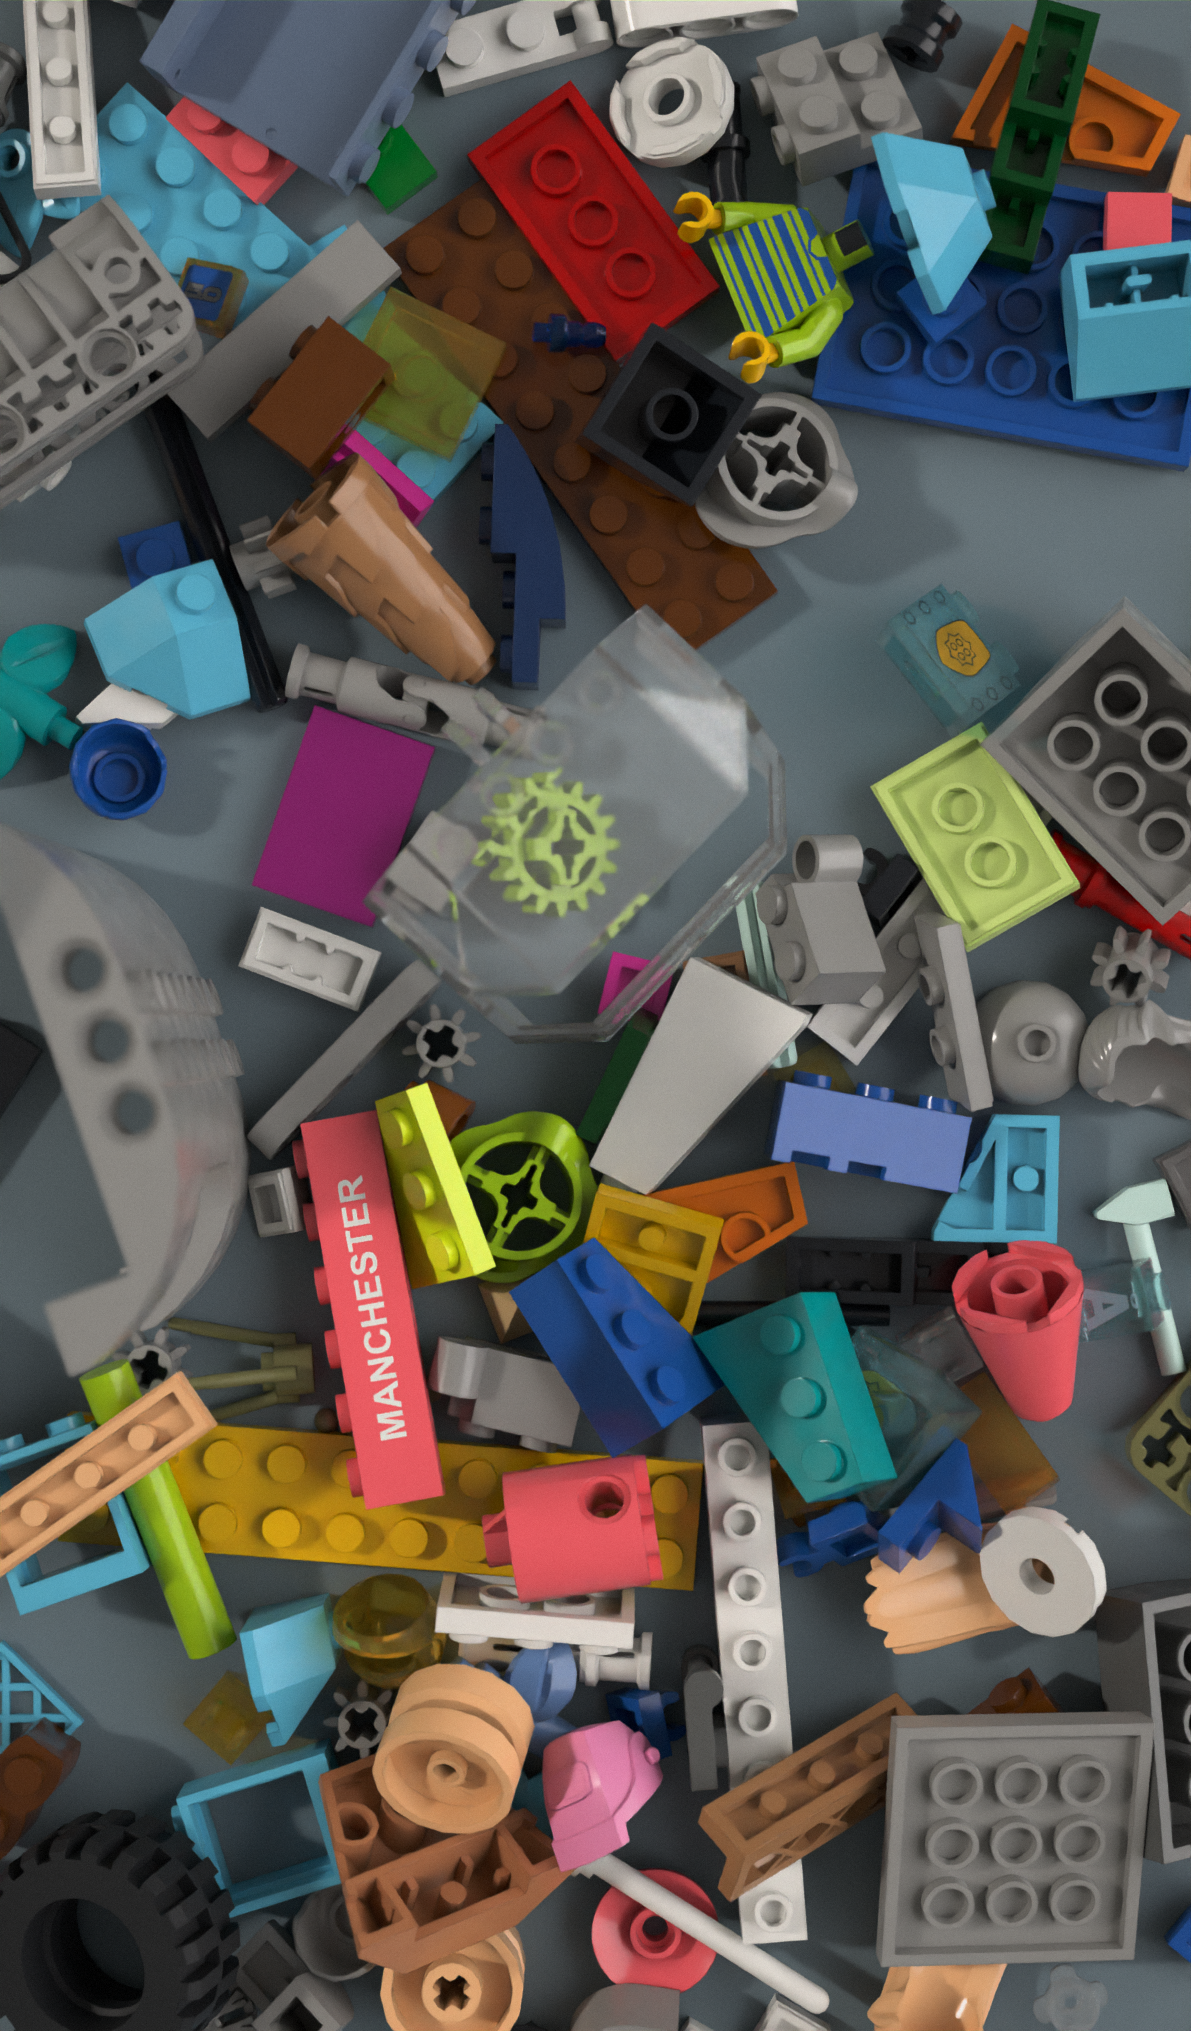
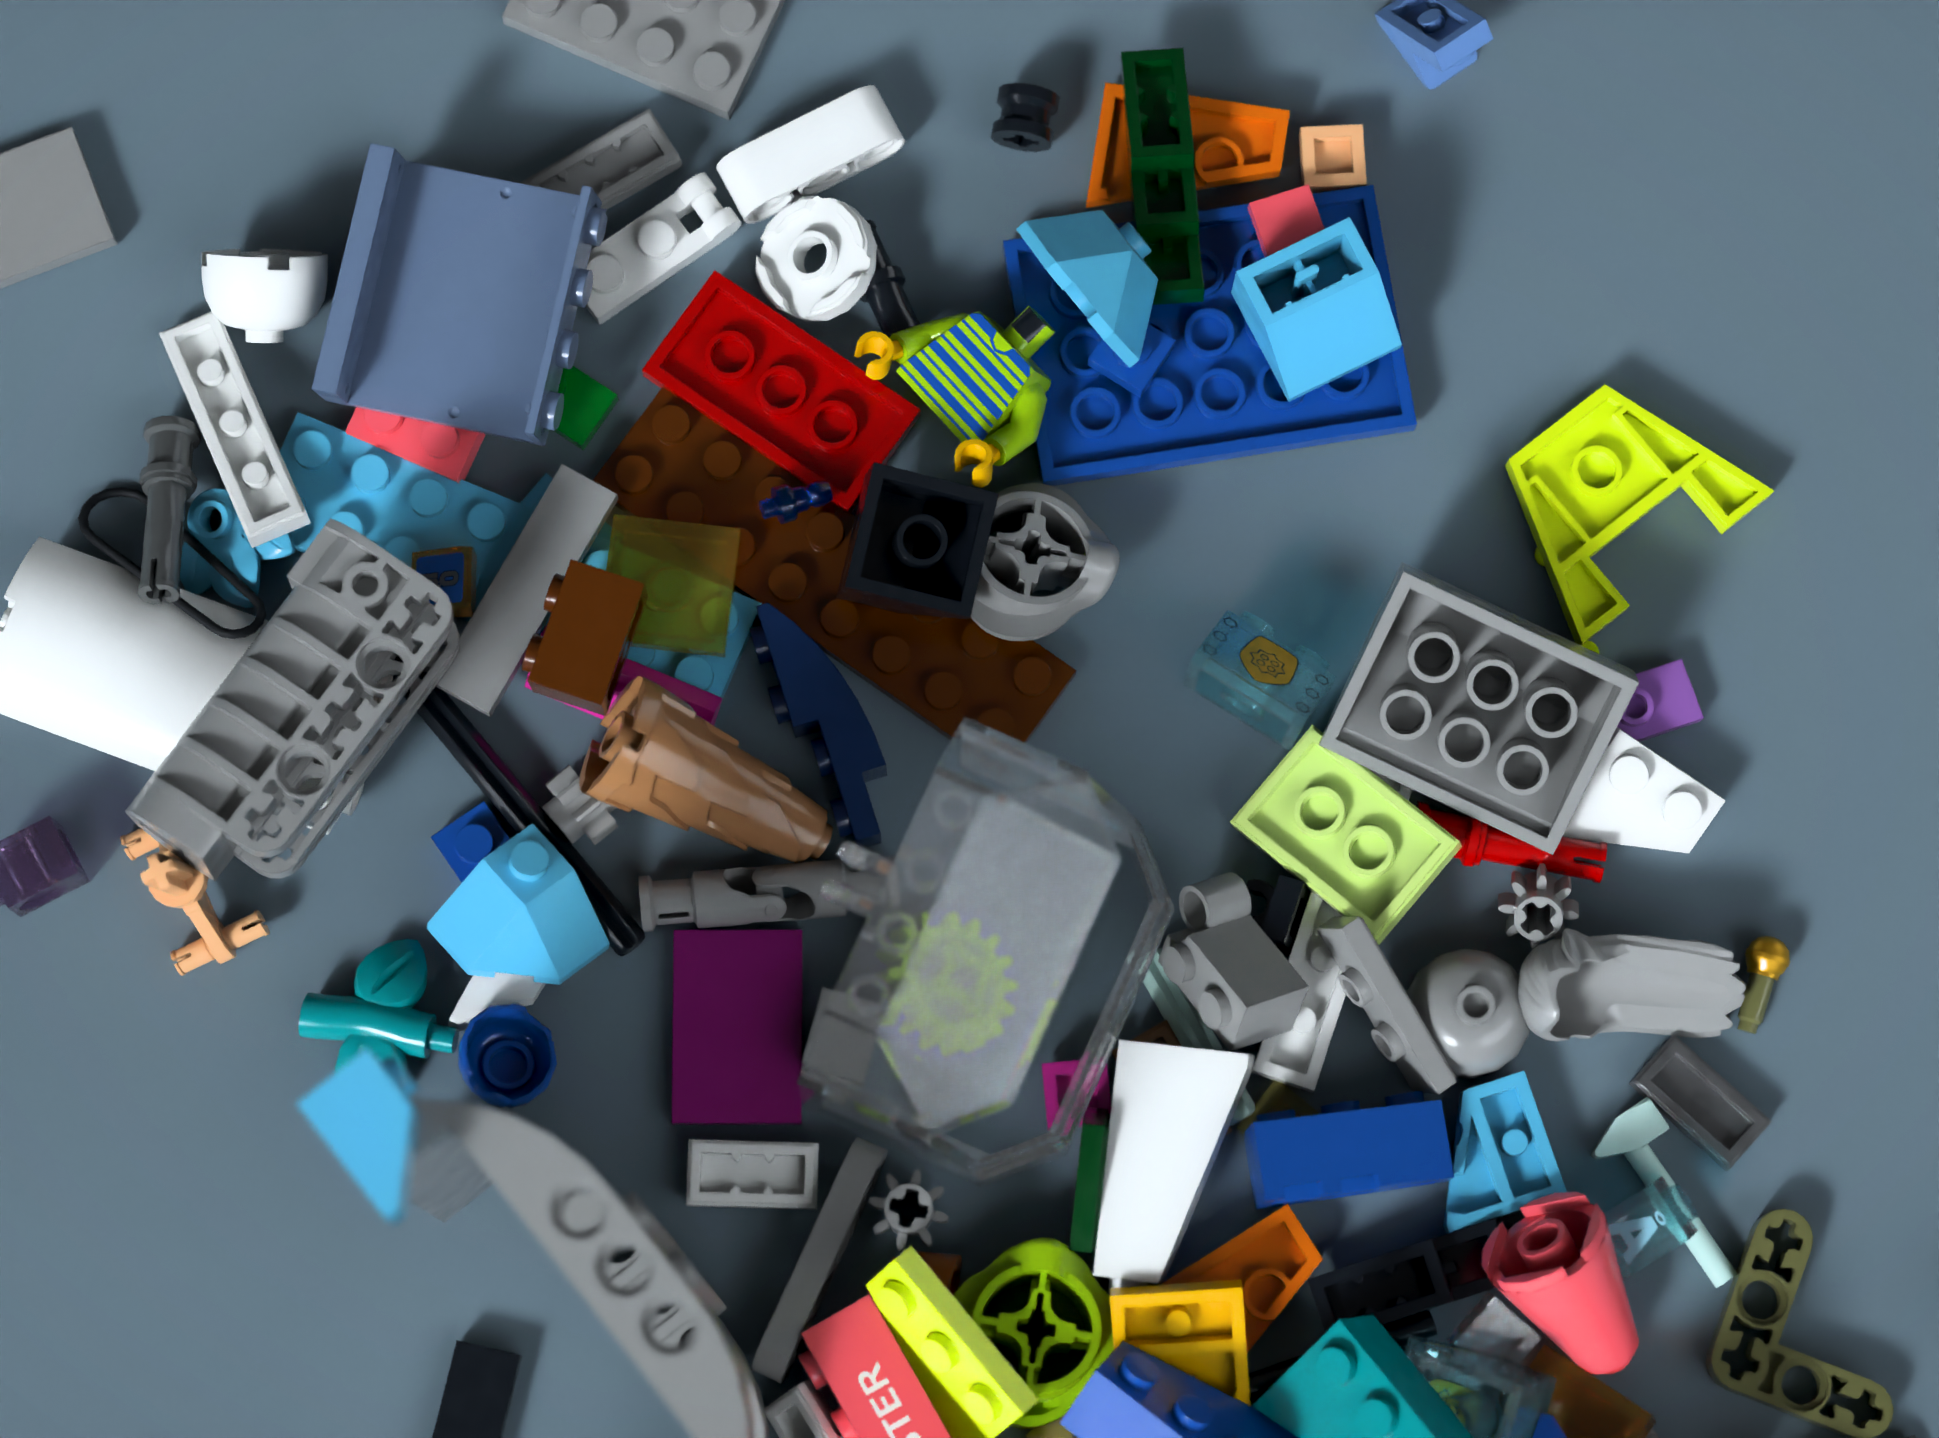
camera: 25 degrees left, 10 degrees down
(831, 104) = (965, 210): light grey plate -> none

